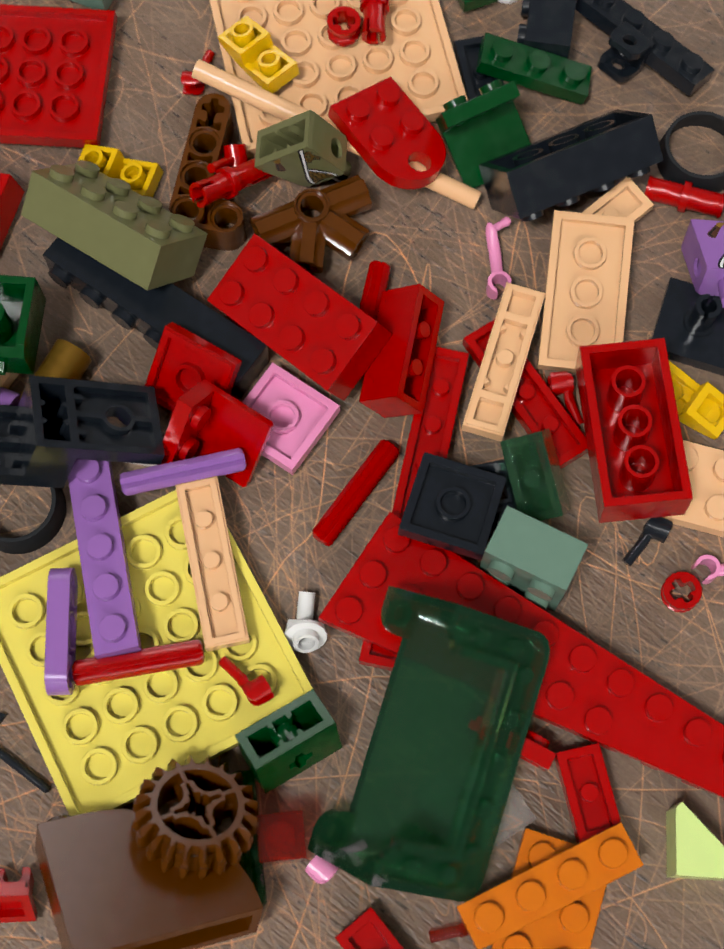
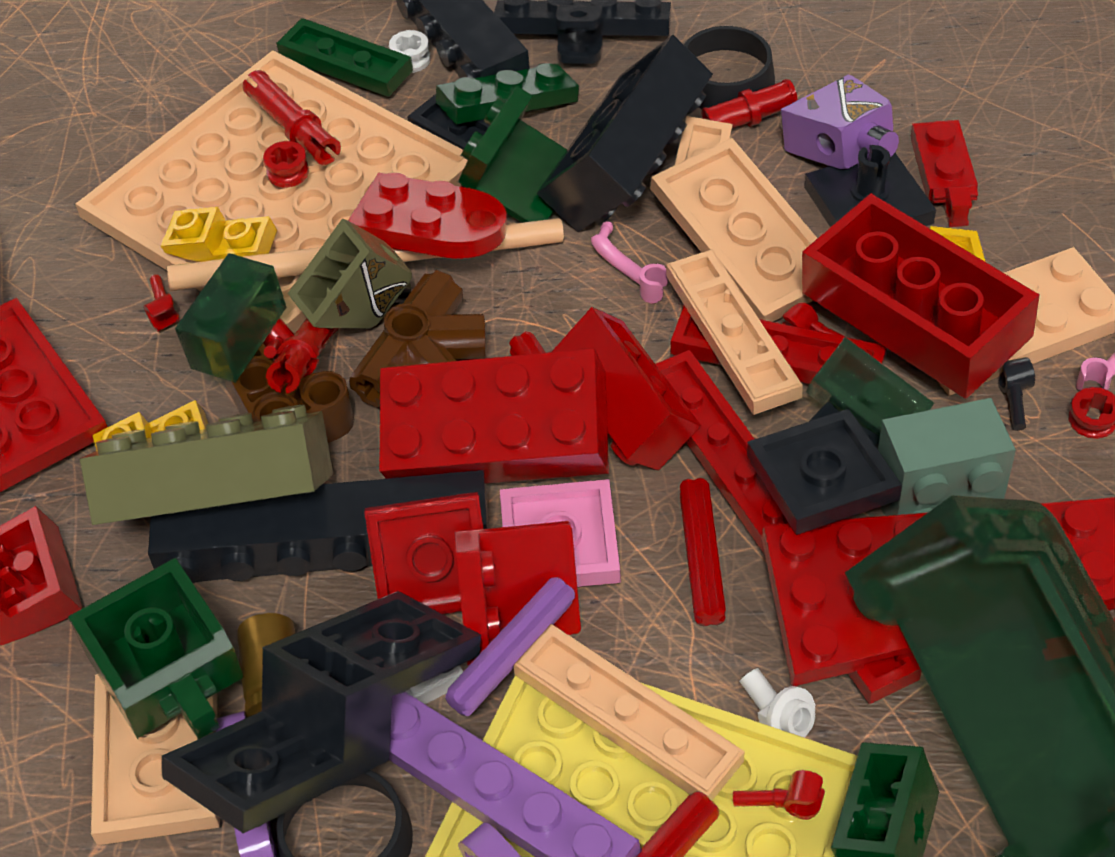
camera: 35 degrees left, 20 degrees down
(204, 127) = (231, 317): none -> clear green brick

